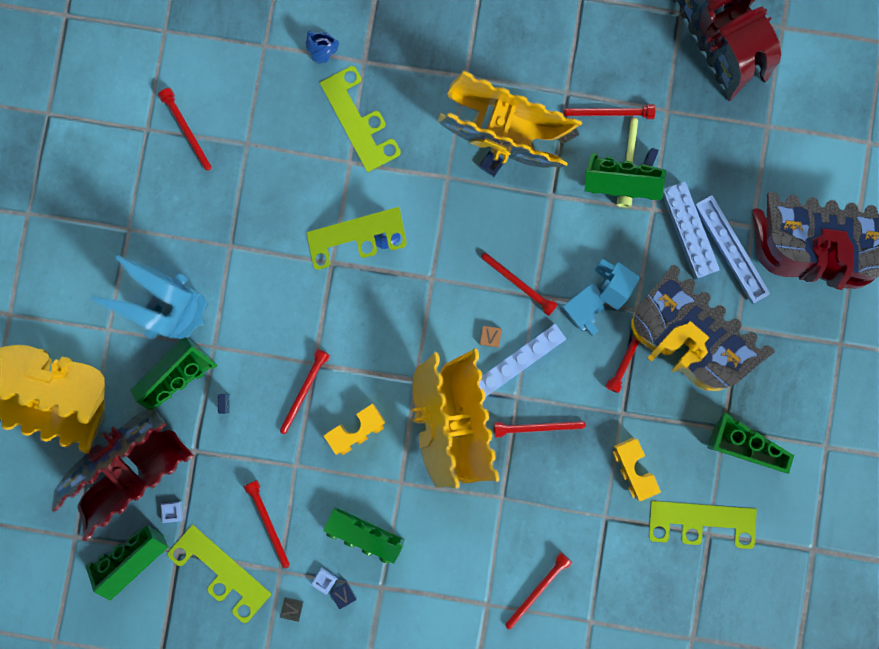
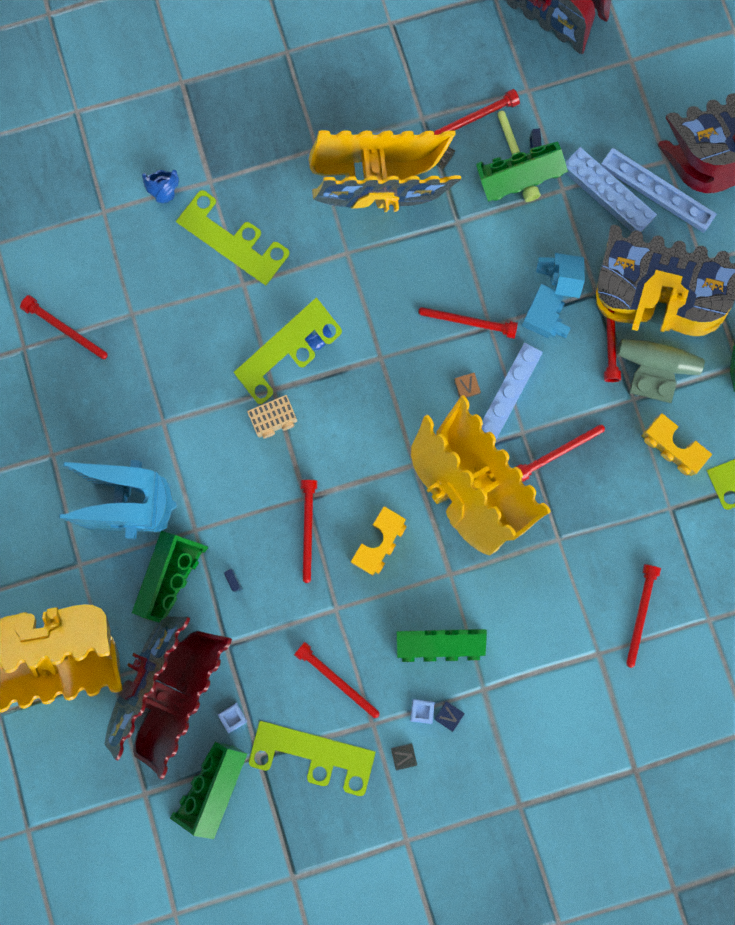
camera: 25 degrees left, 5 degrees down
(319, 285) = (272, 417): none -> tan brick
(491, 166) = (384, 220): dark blue tile -> none
(655, 397) = (657, 367): none -> sand green plate

